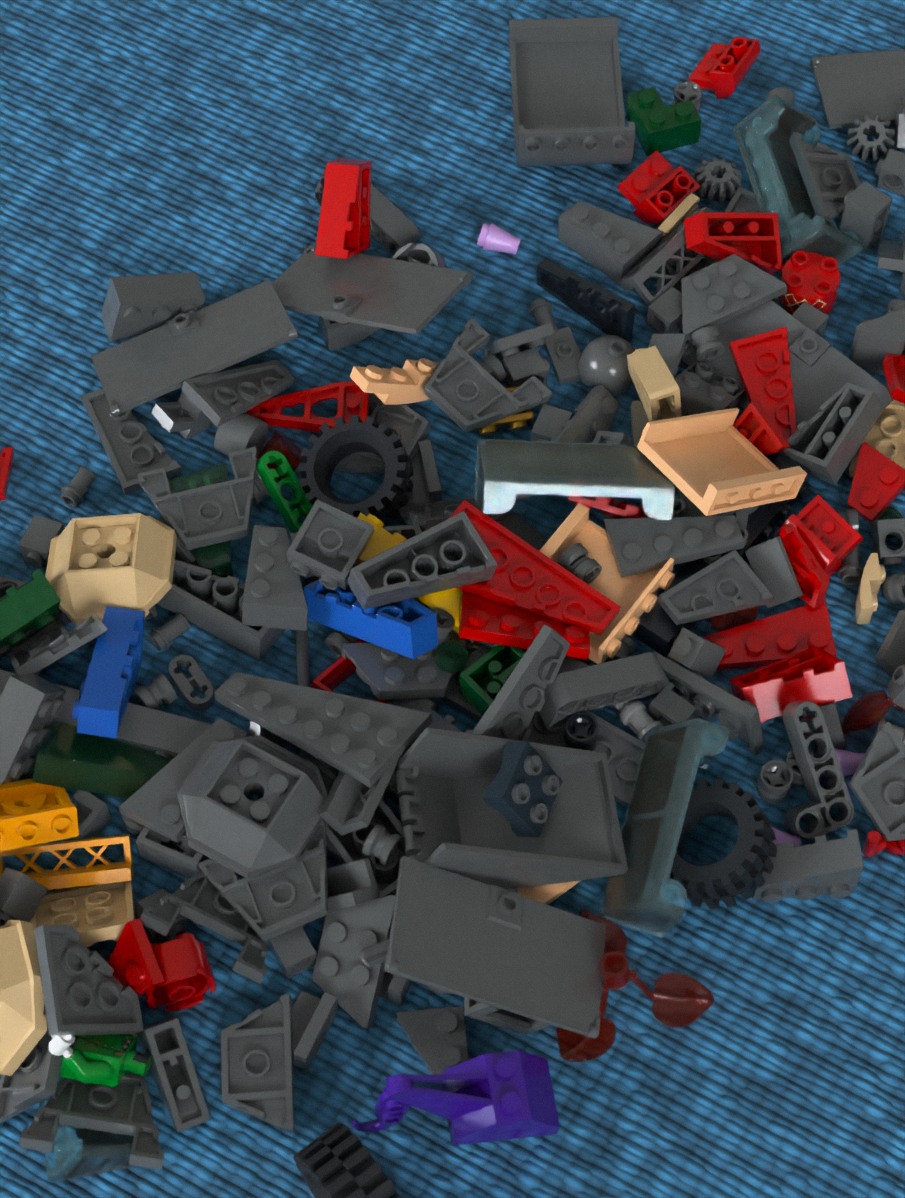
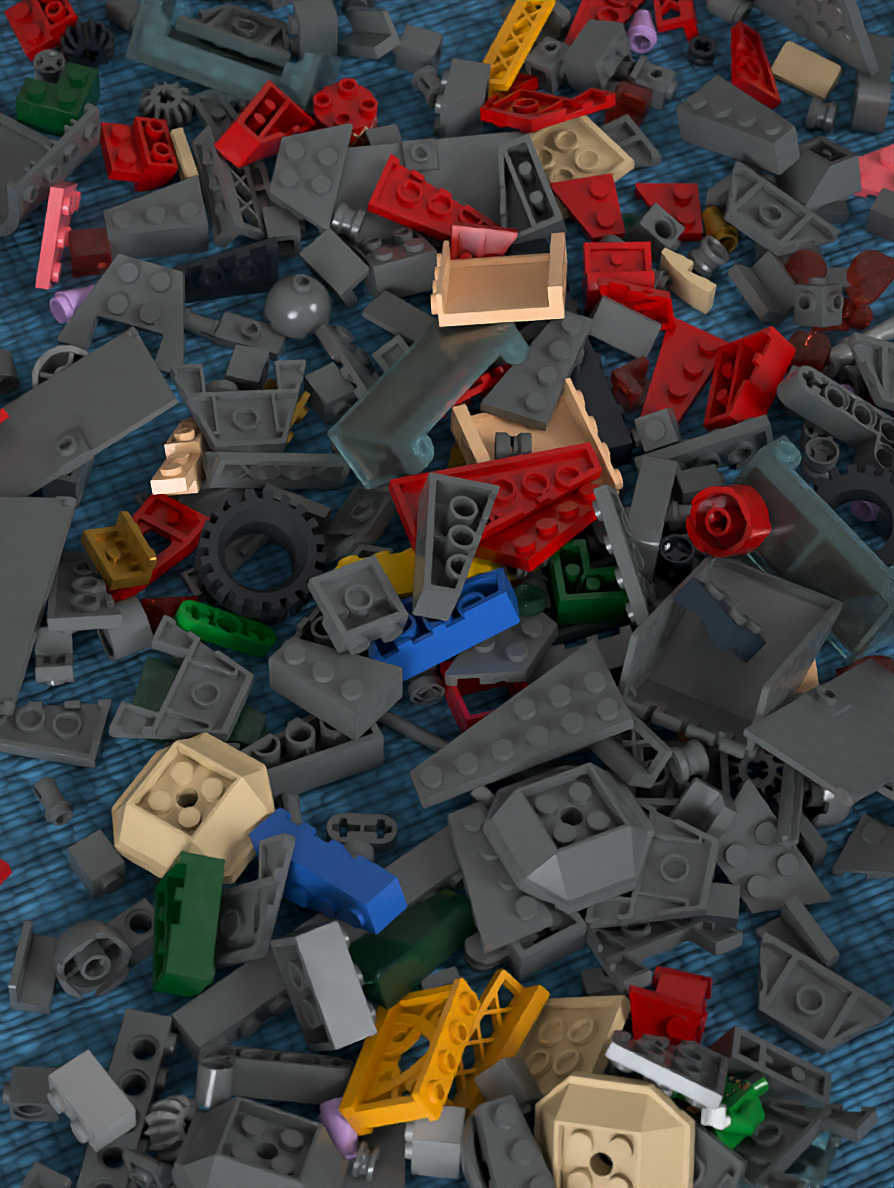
camera: 60 degrees left, 5 degrees down
(288, 391) = (120, 553): none -> pearl gold bracket
(438, 427) = (277, 469): none -> dark grey fence
(523, 340) = (218, 348): dark grey plate -> none
(525, 270) = (135, 296): none -> dark grey wing
(540, 184) = (61, 205): none -> coral plate
(543, 219) = (89, 252): none -> clear red panel
(631, 743) = (728, 520): none -> red brick
(654, 384) = (374, 277): tan slope -> none
(715, 590) = (615, 374): dark grey wing -> none
(723, 102) = (87, 43): none -> black gear

